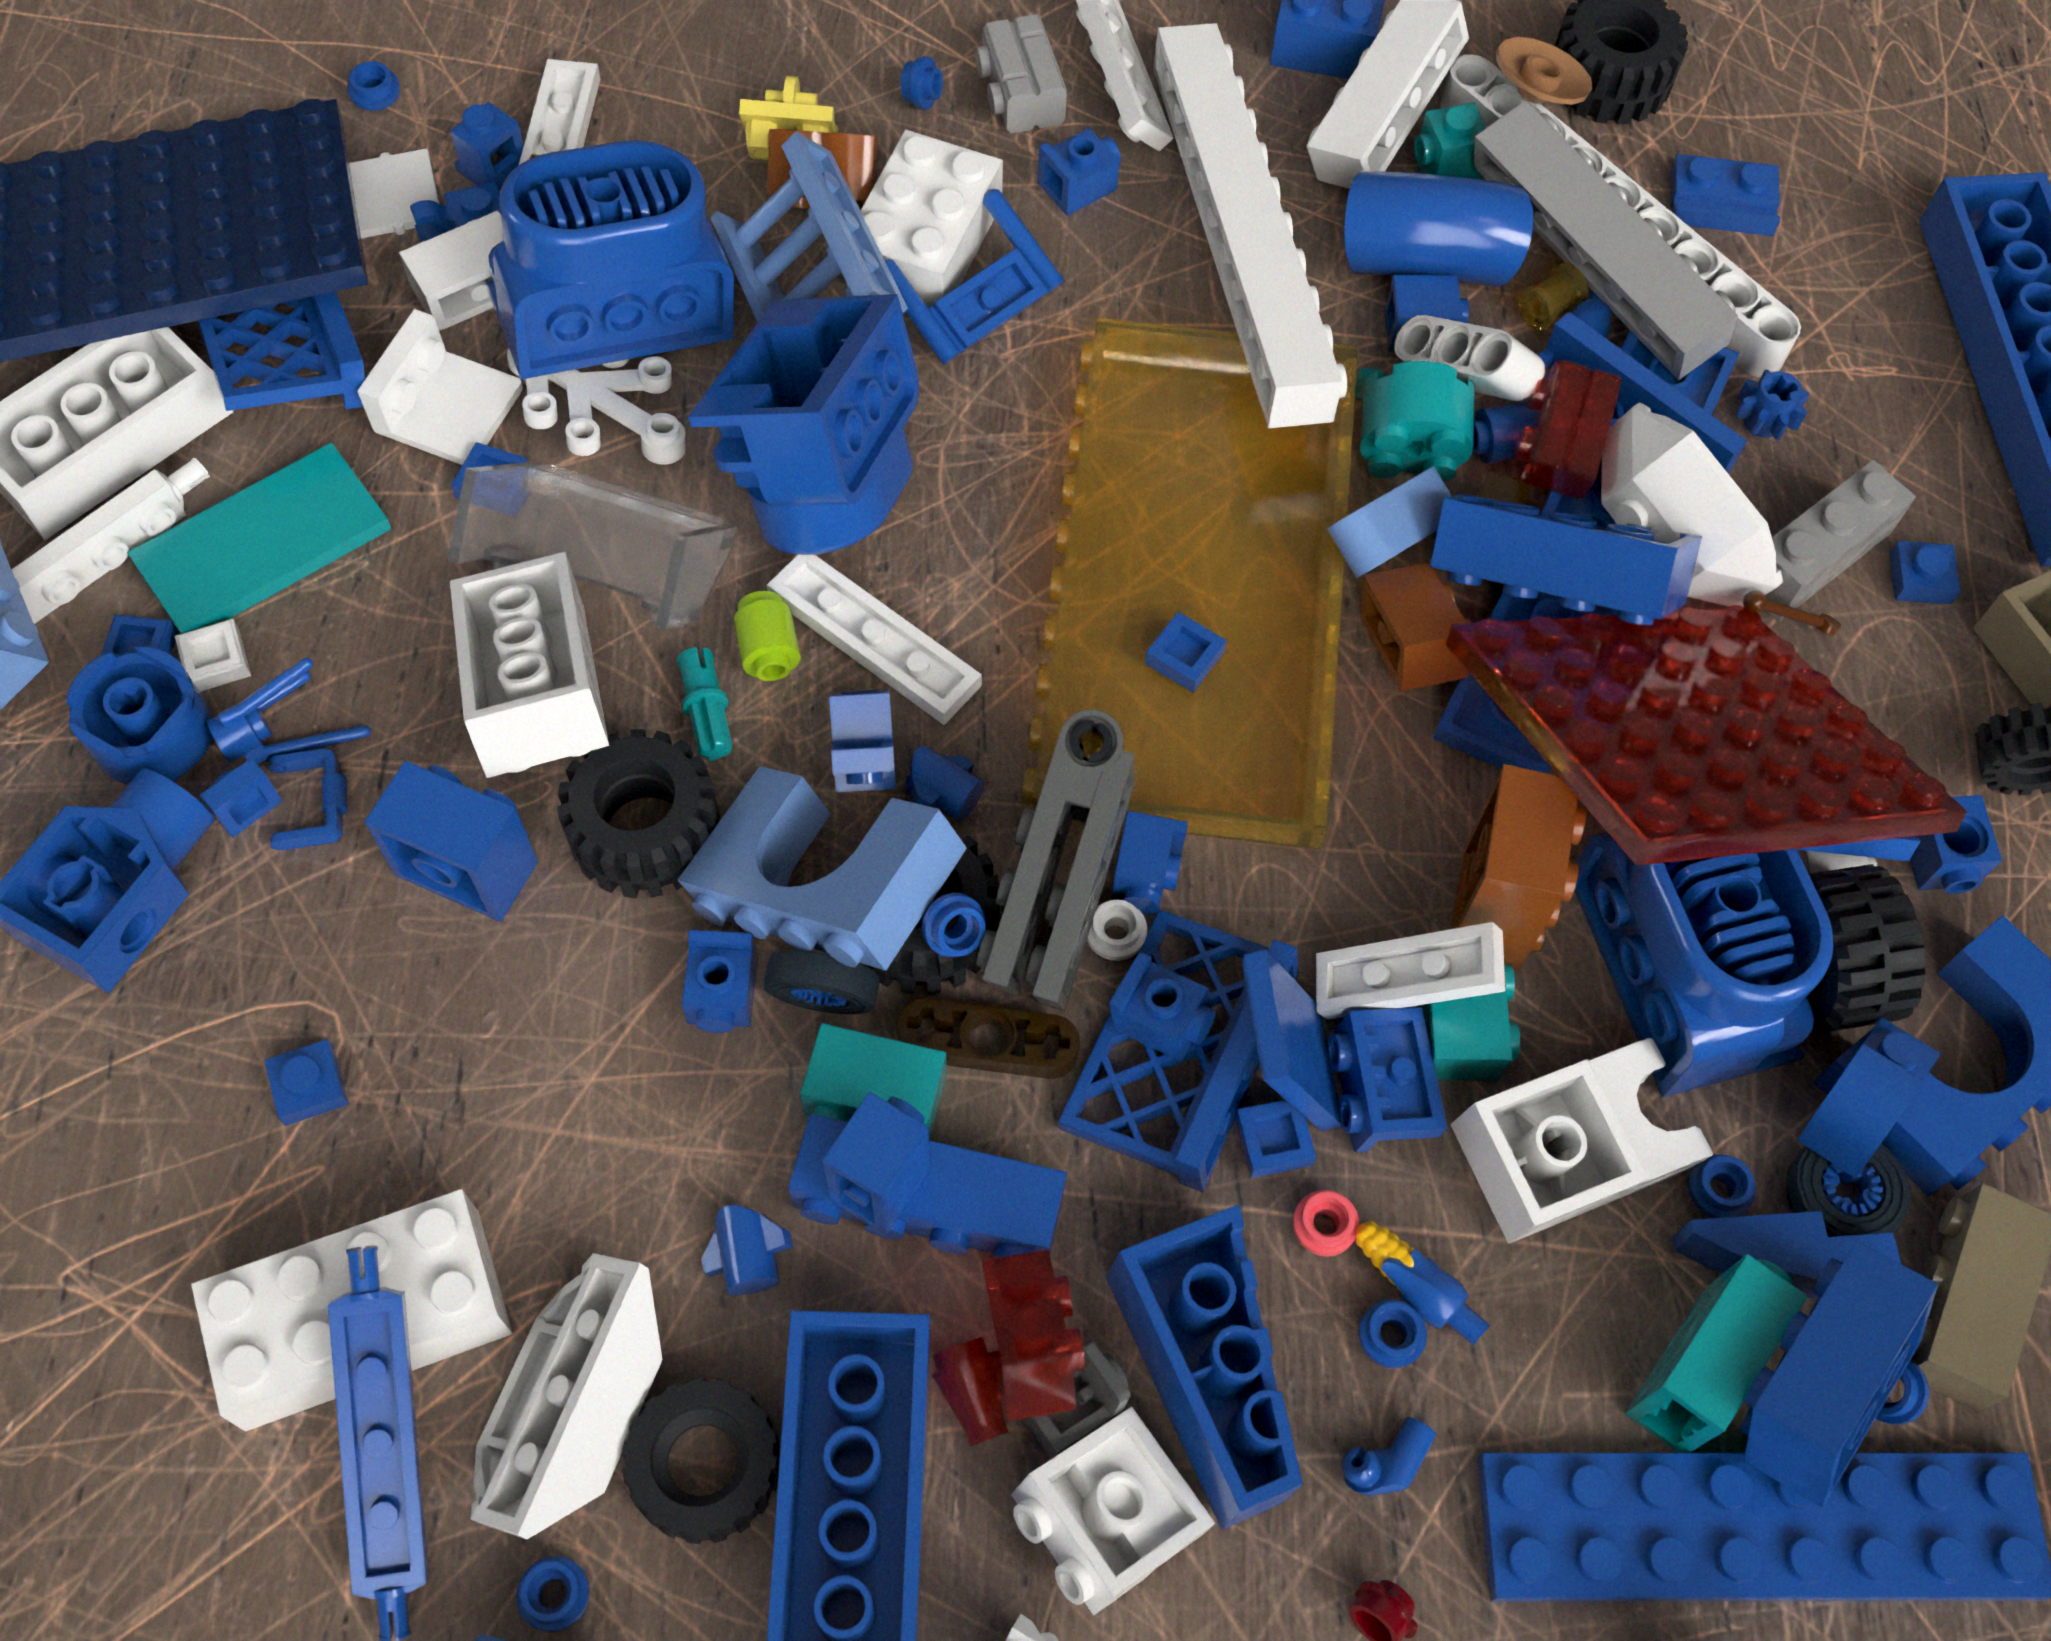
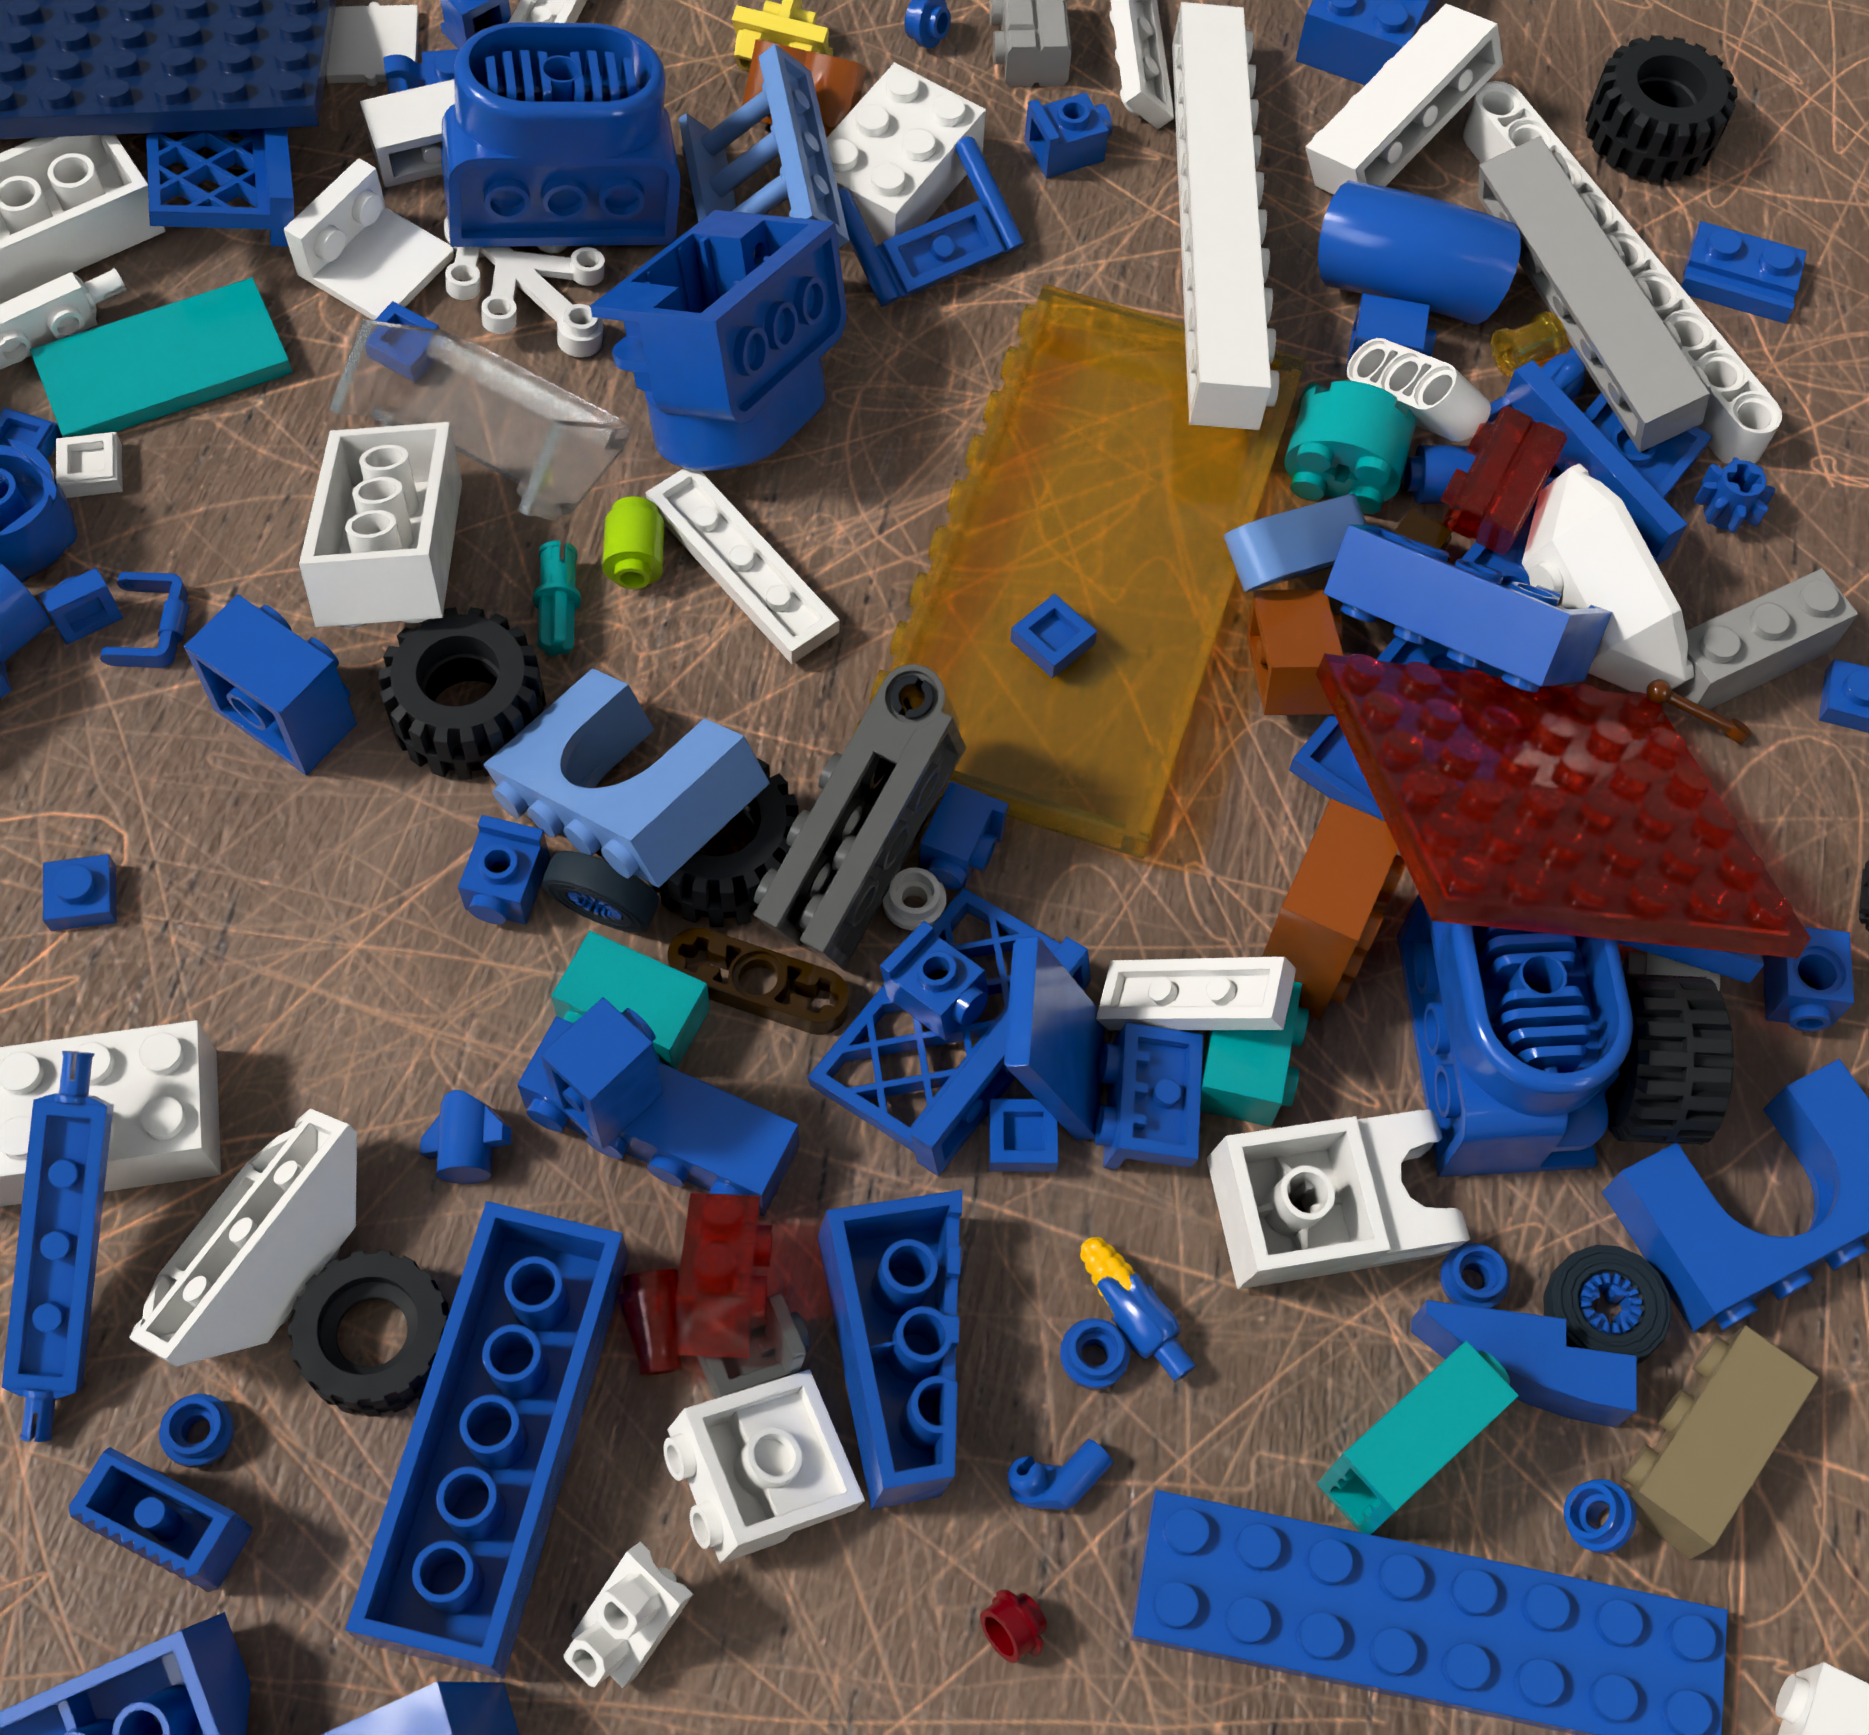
camera: 10 degrees right, 0 degrees up
(243, 727) = (100, 536): blue plant -> none
(862, 740) = (702, 663): brick -> none
(944, 783) = (776, 721): blue piece -> none
(964, 936) = (749, 870): blue plate -> none
(1331, 1205) = (1057, 1211): coral plate -> none
(1449, 141) = (1453, 167): teal brick -> none
(1543, 71) = (1571, 110): medium nougat dish -> none
(1836, 1371) = (1532, 1478): blue brick -> none
(1869, 1097) = (1644, 1212): blue brick -> none

